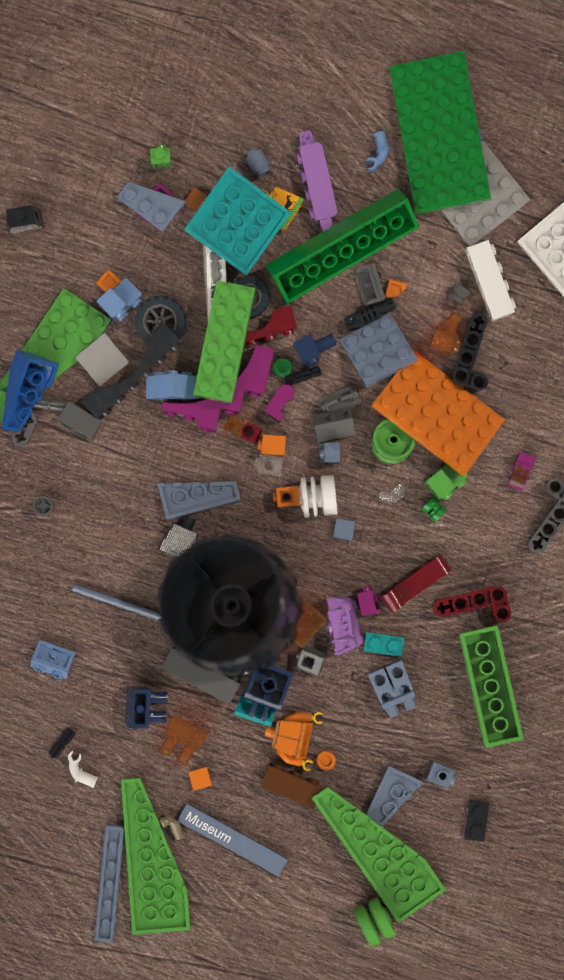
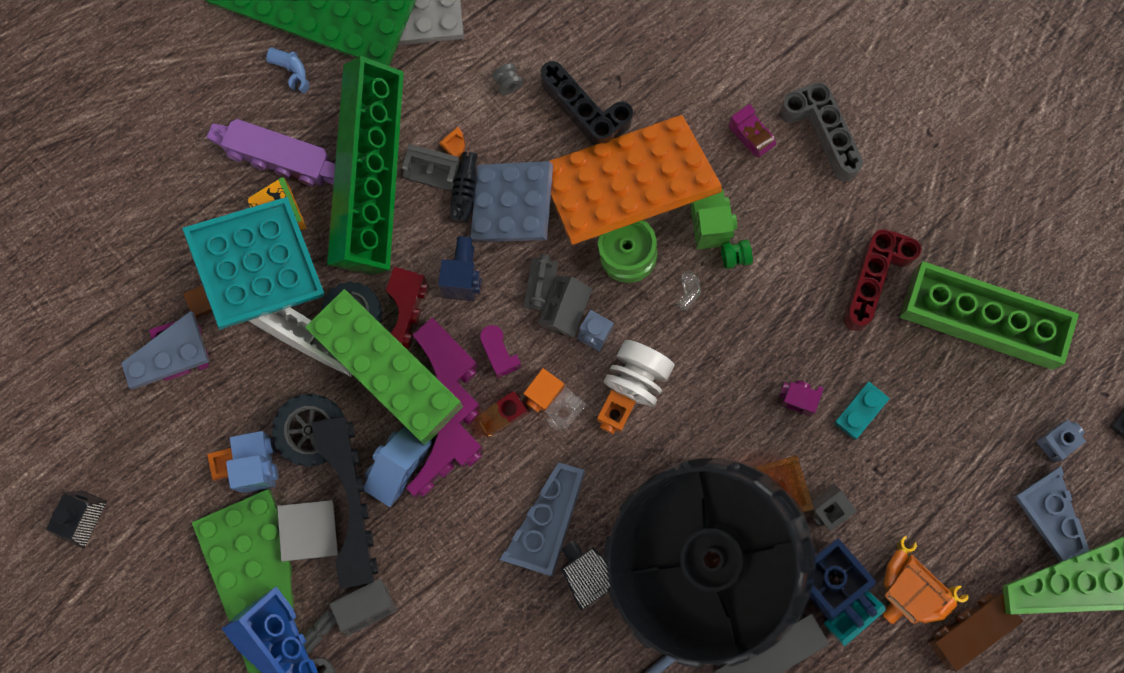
camera: 55 degrees left, 10 degrees down
(160, 157) = (117, 307): bright green brick -> none
(257, 162) = (207, 204): sand blue brick -> none
(282, 367) = (459, 324): green tile -> none
(302, 375) = (484, 306): black axle -> none
(326, 760) = (964, 568): orange tile -> none
(344, 529) = (695, 372): sand blue tile -> none
(344, 624) = (812, 441): medium lavender piece -> none
(394, 693) = (921, 431): sand blue hips -> none
(415, 583) = (811, 329): dark red beam -> none
(446, 340) = (549, 118): clear orange brick -> none
(490, 281) = (514, 35): white brick -> none

